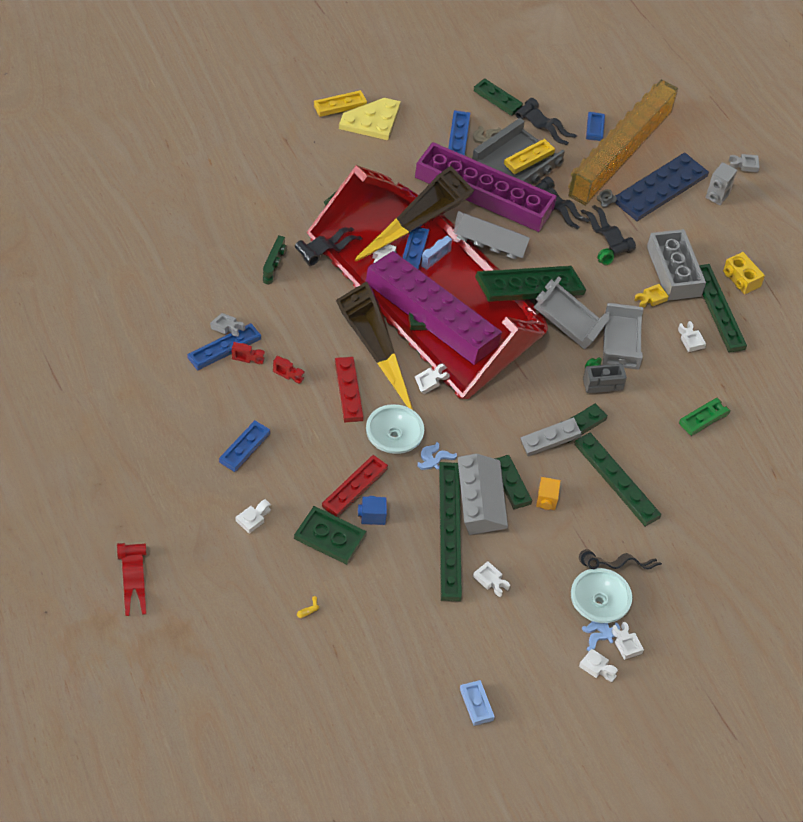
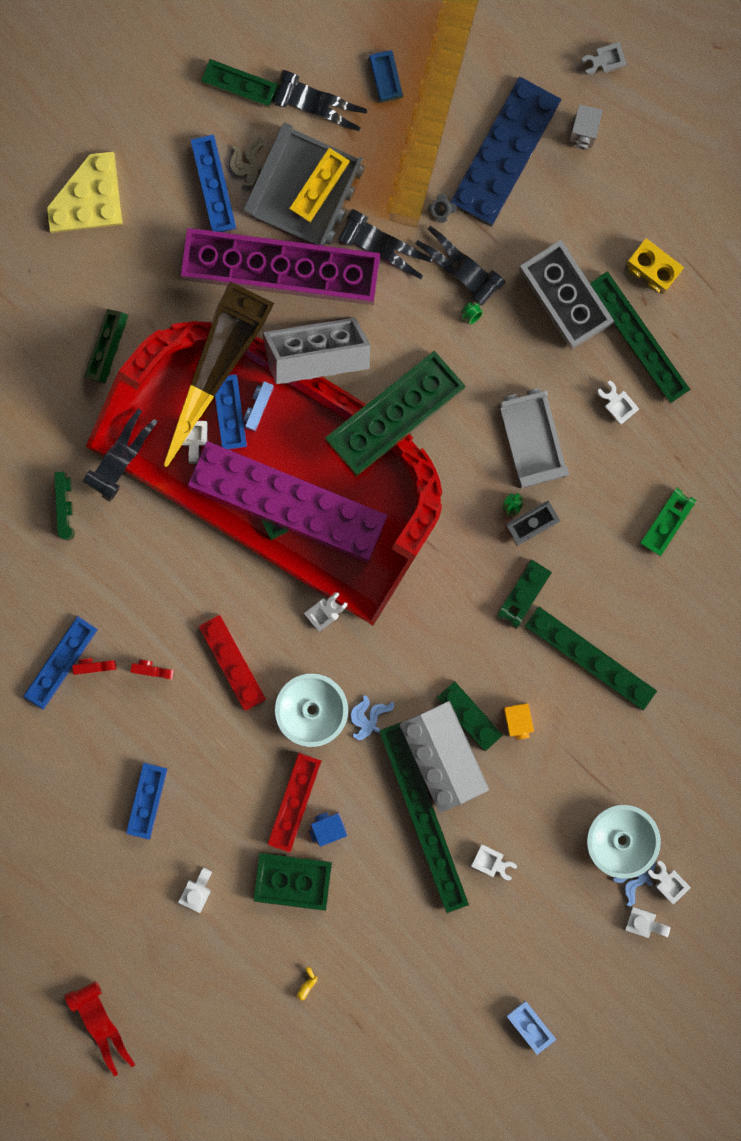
camera: 10 degrees left, 35 degrees up
(226, 323) = (49, 633): light grey plate -> none
(339, 103) = (36, 192): yellow plate -> none
(365, 317) = (213, 553): dark brown plate -> none
(550, 437) = (495, 636): light grey plate -> none
(569, 314) = (460, 440): light grey panel -> none
(590, 560) = (603, 793): black flag -> none
(652, 295) = (552, 354): yellow plate -> none

